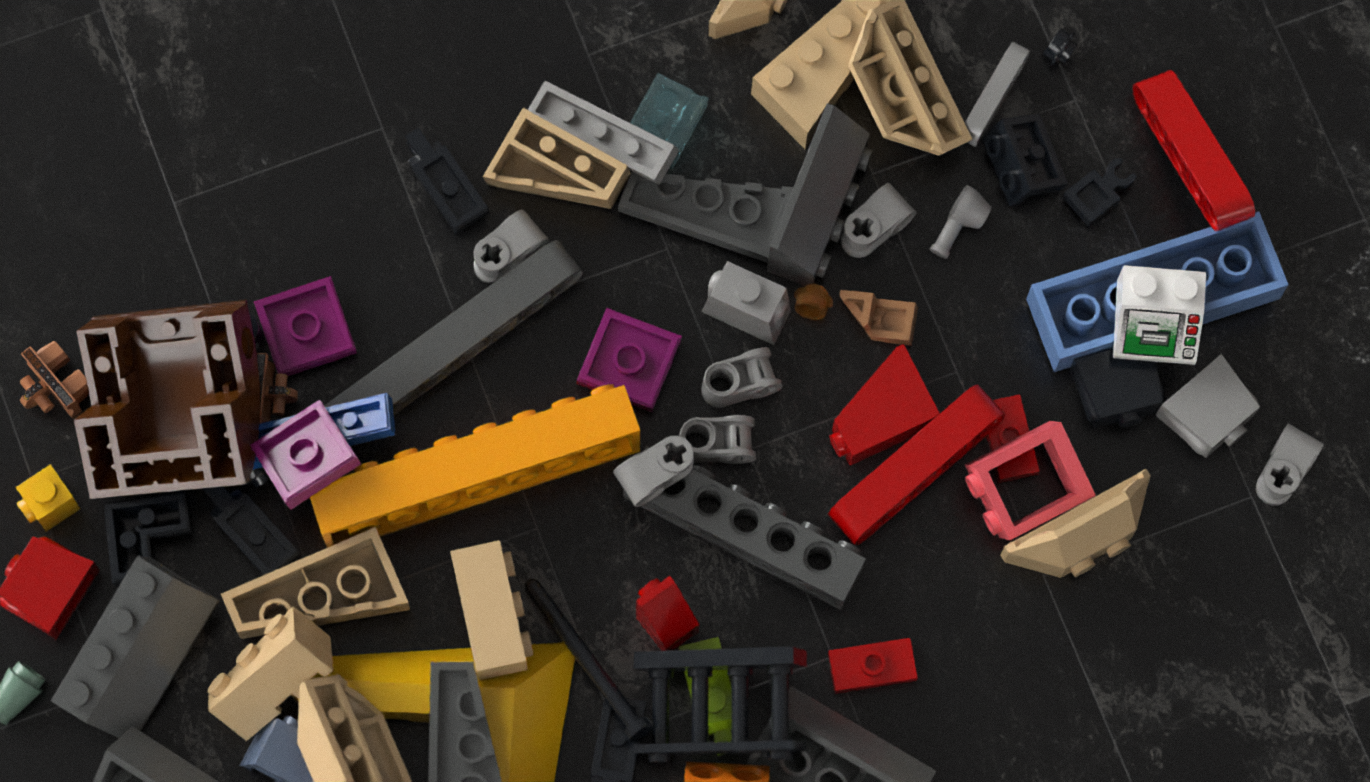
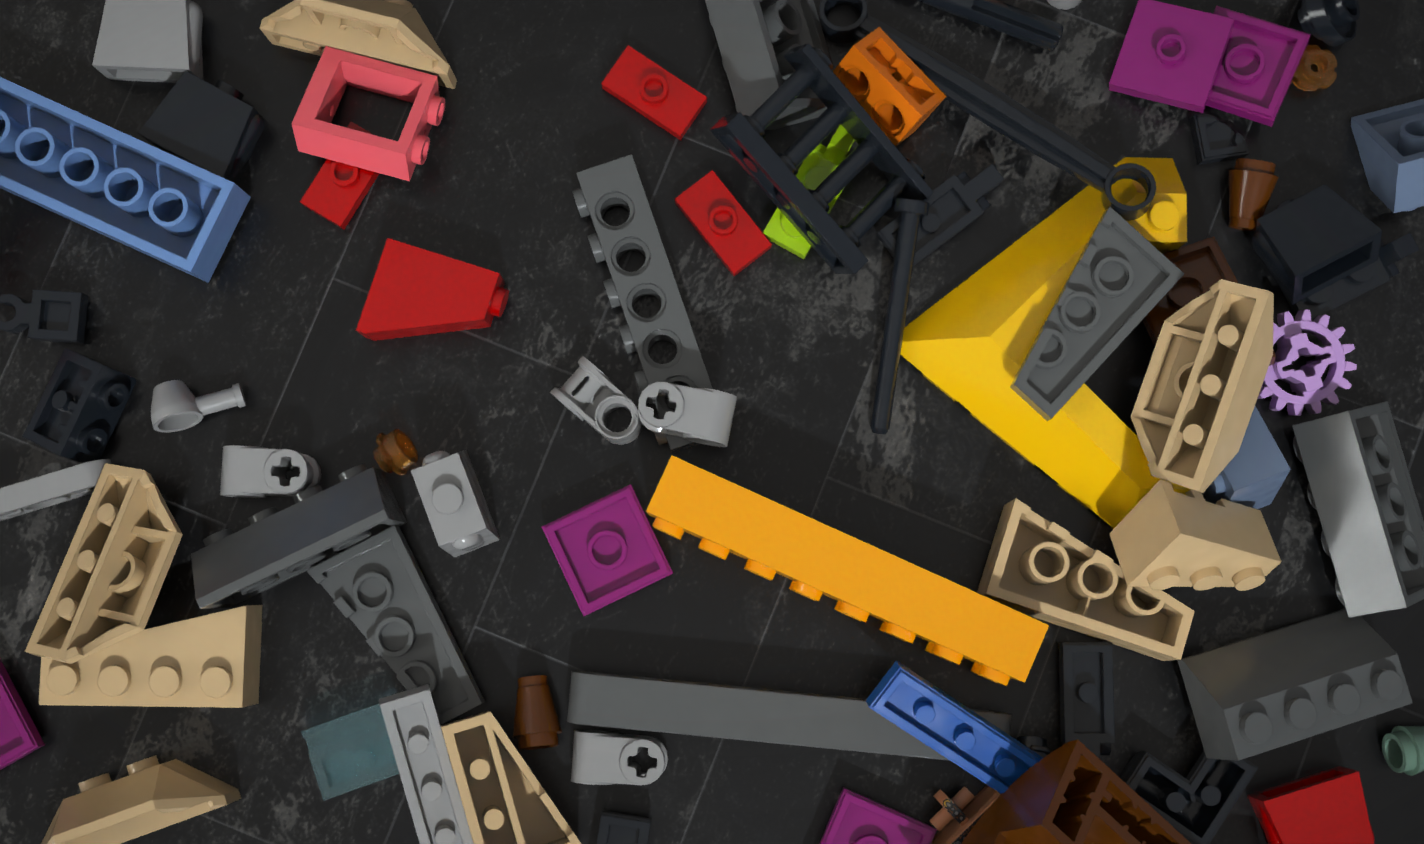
camera: 135 degrees left, 10 degrees up
(305, 454) = (998, 716): plate -> none
(491, 610) = (951, 421): tan wedge -> none
(580, 228) = (535, 714): none -> reddish brown cone
(665, 614) = (795, 286): red slope -> none
(748, 375) = (519, 436): light grey piece -> none
(749, 622) = (723, 223): none -> red plate
(882, 318) = (348, 382): medium nougat slope -> none
(916, 464) = (449, 218): red beam -> none
(1159, 314) = (106, 131): white slope -> none

